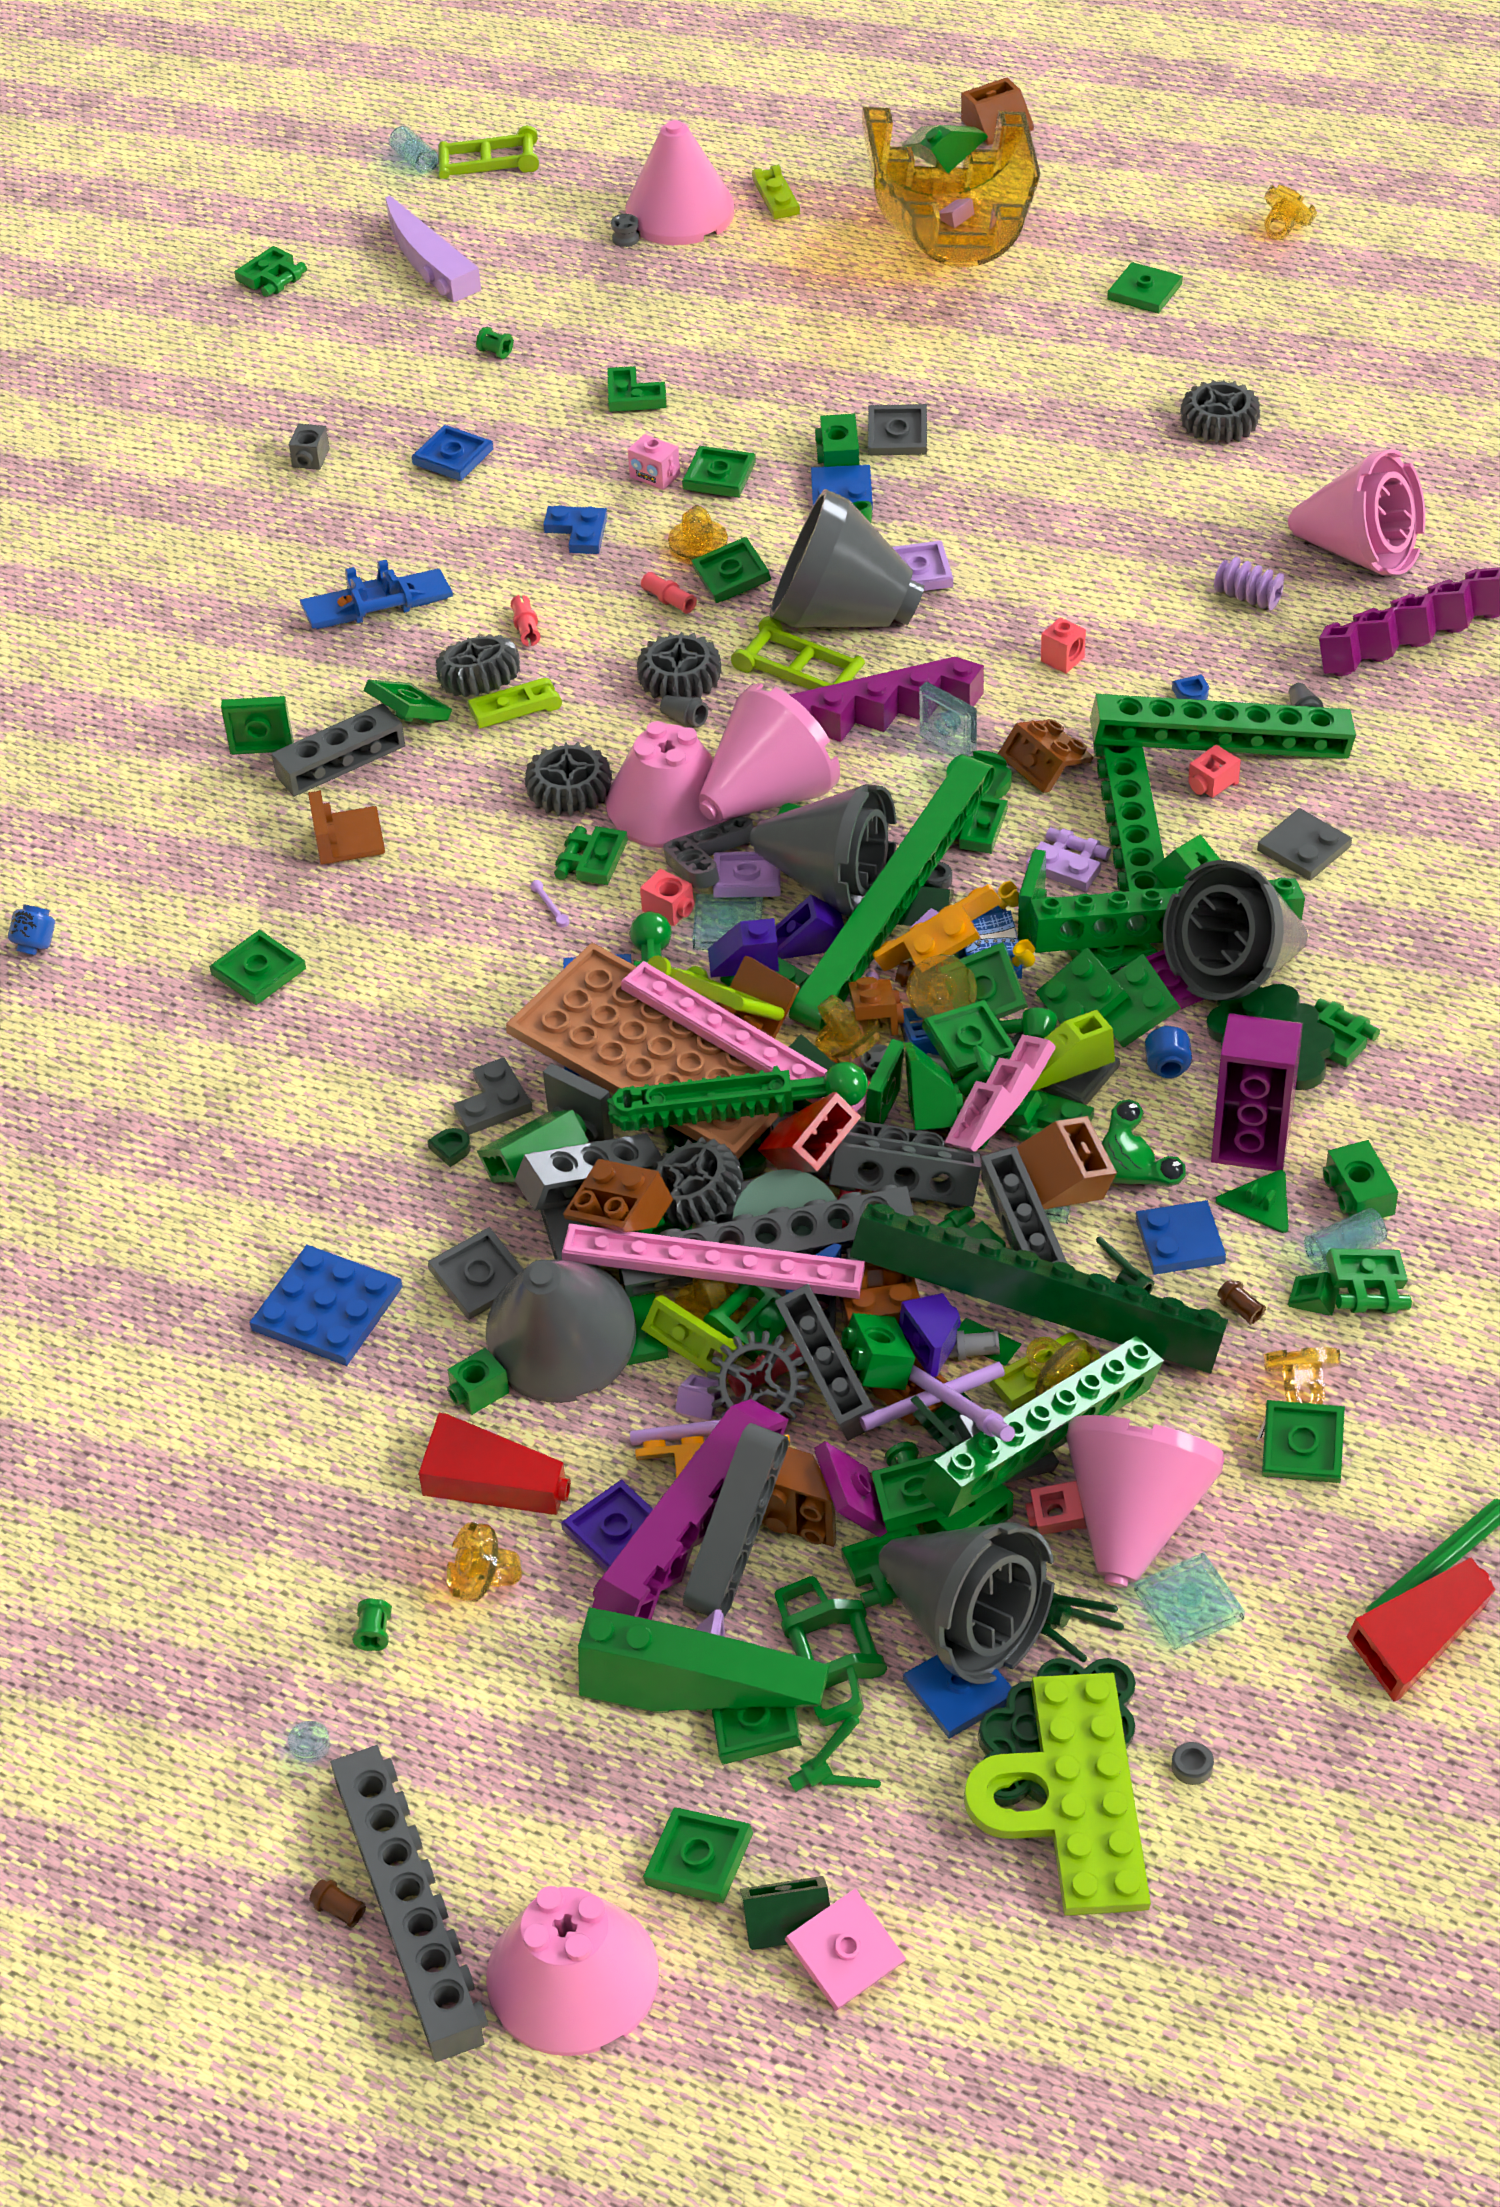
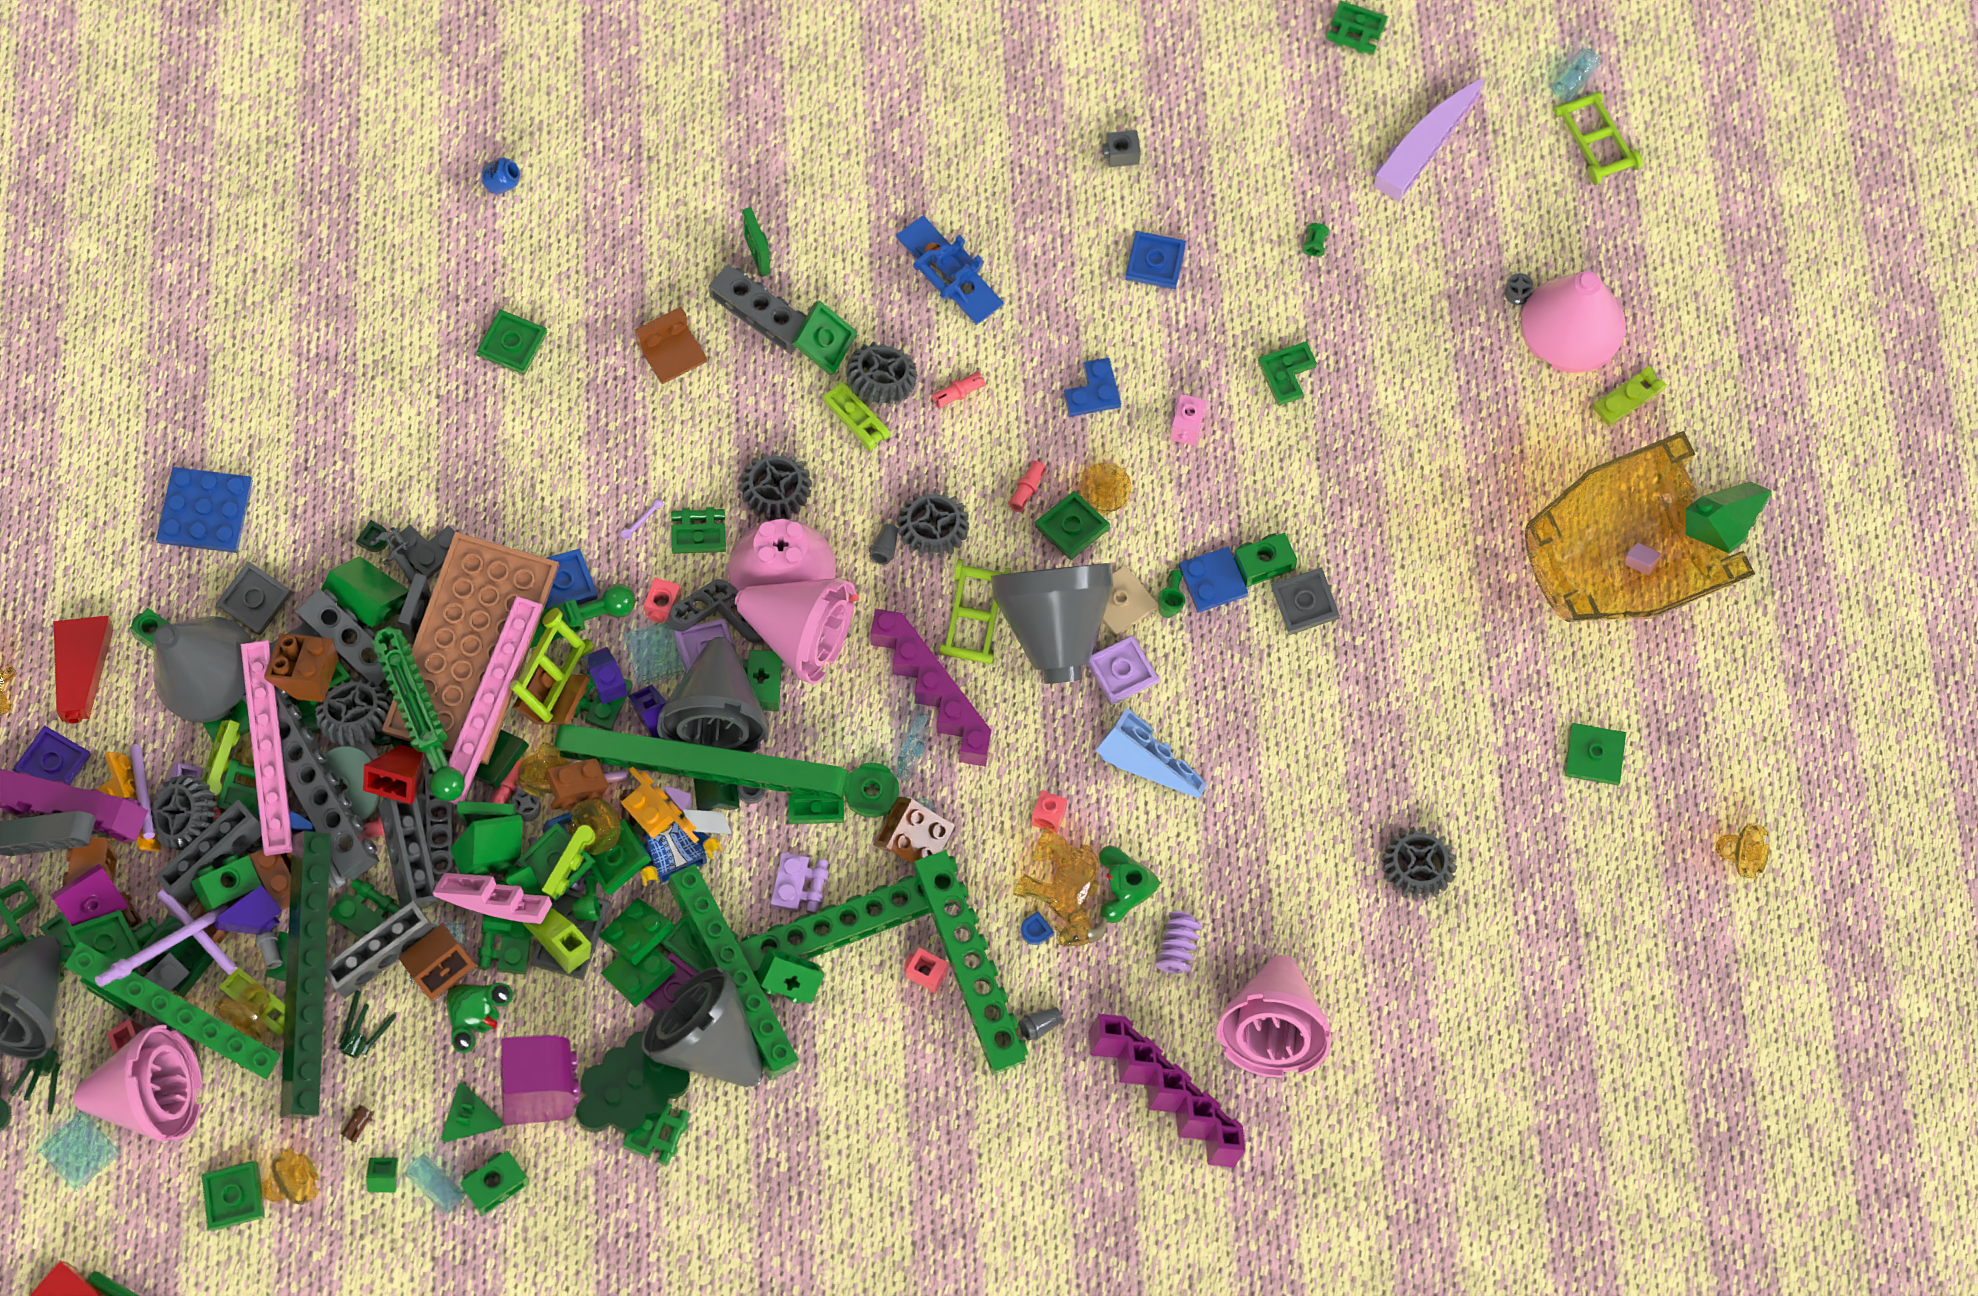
camera: 65 degrees right, 20 degrees up
(492, 1118) = (396, 553): none -> dark grey piece
(719, 471) = (1199, 475): green plate -> none
(982, 105) = (1817, 550): dark orange slope -> none
(982, 1010) = (569, 861): none -> lime plate
(1019, 570) = (1135, 750): none -> light blue wedge
(1032, 888) = (725, 865): green plate -> none
(1155, 649) = (1069, 888): none -> clear yellow animal
(1165, 602) = (1128, 881): none -> green head
(1168, 1051) = (595, 1011): blue head -> none
(1180, 1237) = (413, 1066): blue plate -> none
(1304, 844) = (870, 1062): dark grey plate -> none
(1368, 1269) = (403, 1204): green plate -> none

